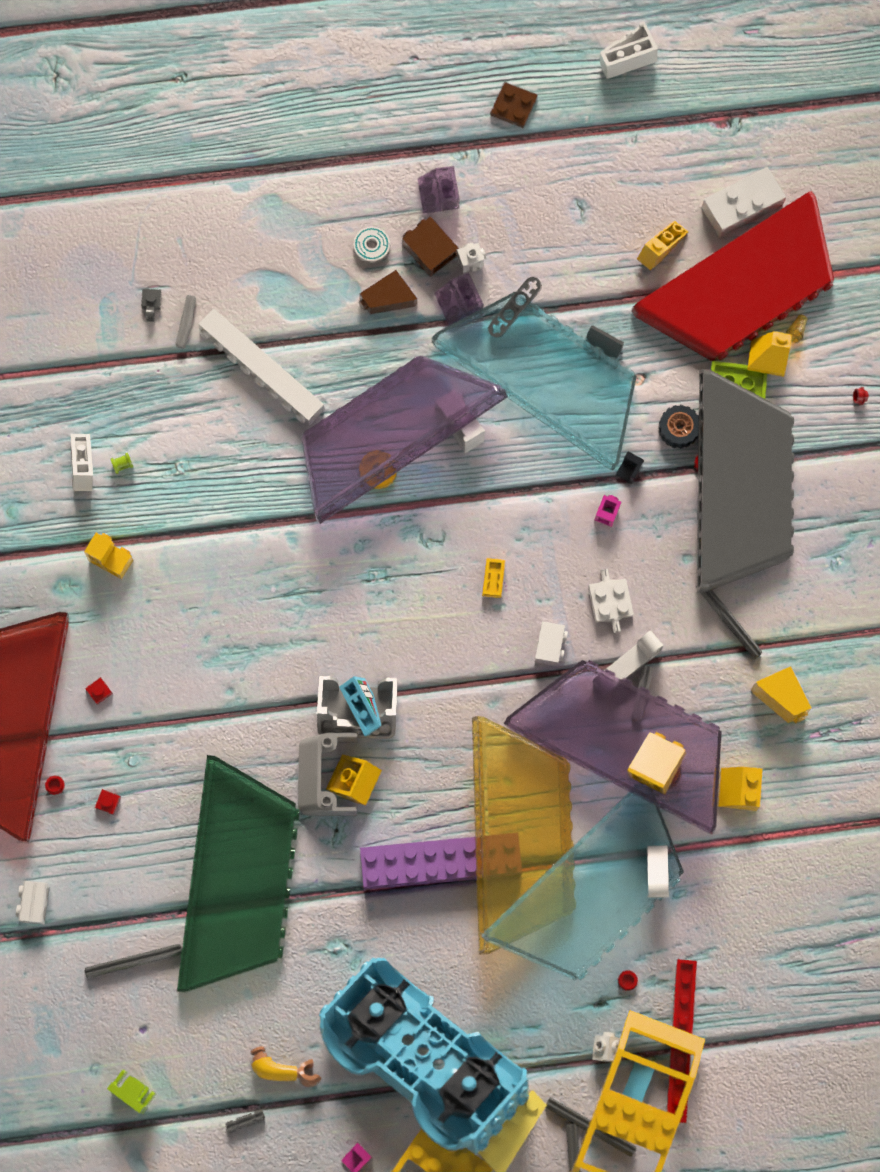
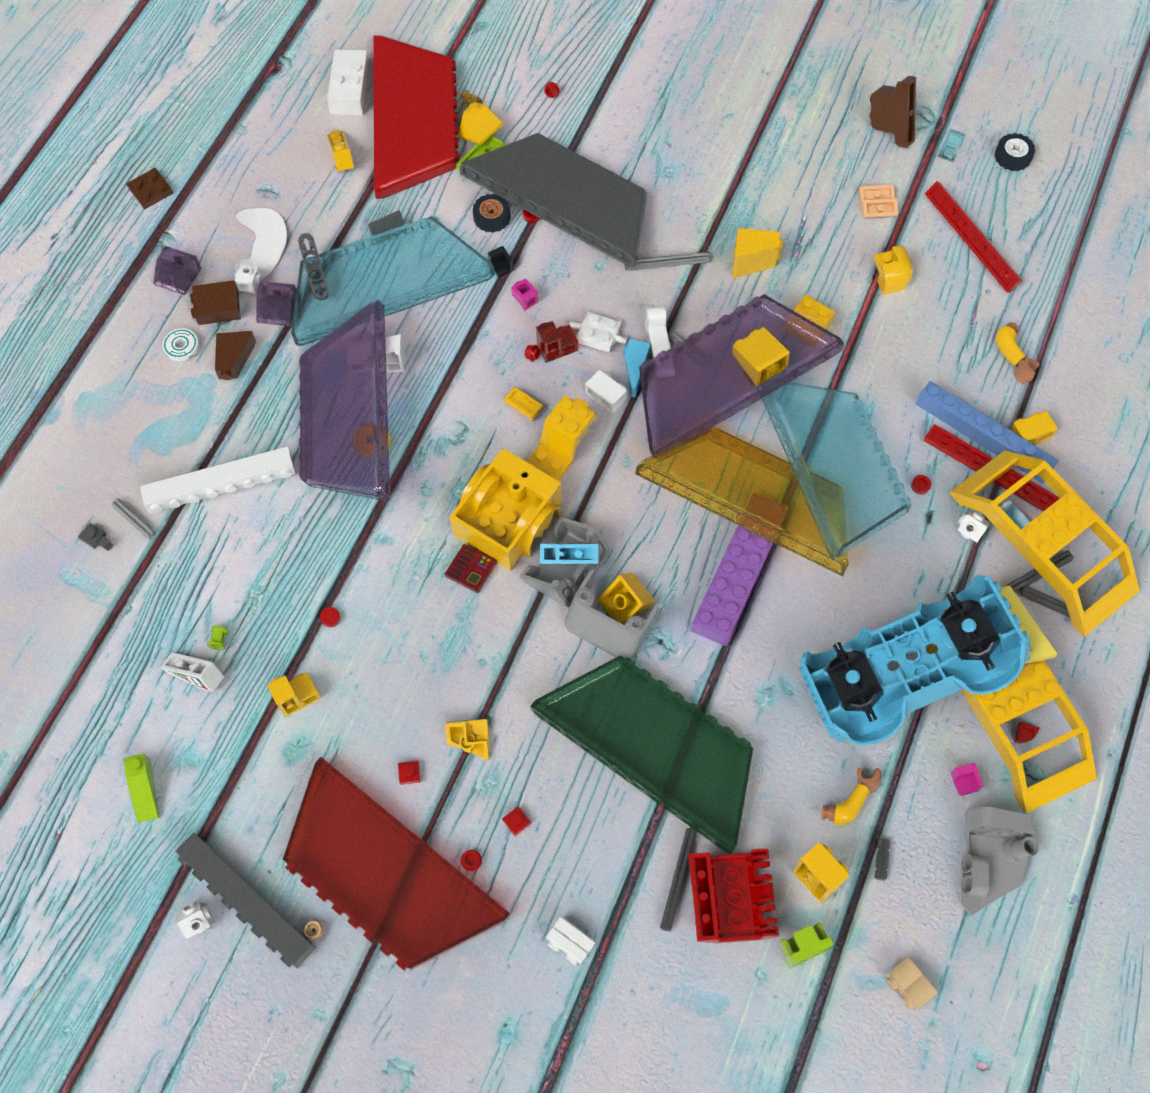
camera: 55 degrees left, 10 degrees down
(139, 1010) = (732, 897): none -> red slope
(157, 720) = (470, 736): none -> yellow slope
(194, 541) = (330, 617): none -> red tile
(196, 1072) = (821, 872): none -> yellow brick
(307, 629) = (470, 568): none -> dark red tile
(370, 632) = (516, 498): none -> yellow piece
(524, 248) = (270, 238): none -> white sticker
(550, 554) = (532, 352): none -> red plate
(572, 570) = (555, 341): none -> clear red brick
(601, 651) = (635, 354): none -> medium azure slope
(629, 53) = (174, 89): white wedge -> none
(658, 871) = (847, 408): white beam -> none
(717, 1013) = (978, 425): none -> medium blue brick
(747, 1056) = (1035, 428): none -> yellow brick
(833, 985) = (1009, 348): none -> piece
(849, 838) = (894, 270): none -> yellow brick

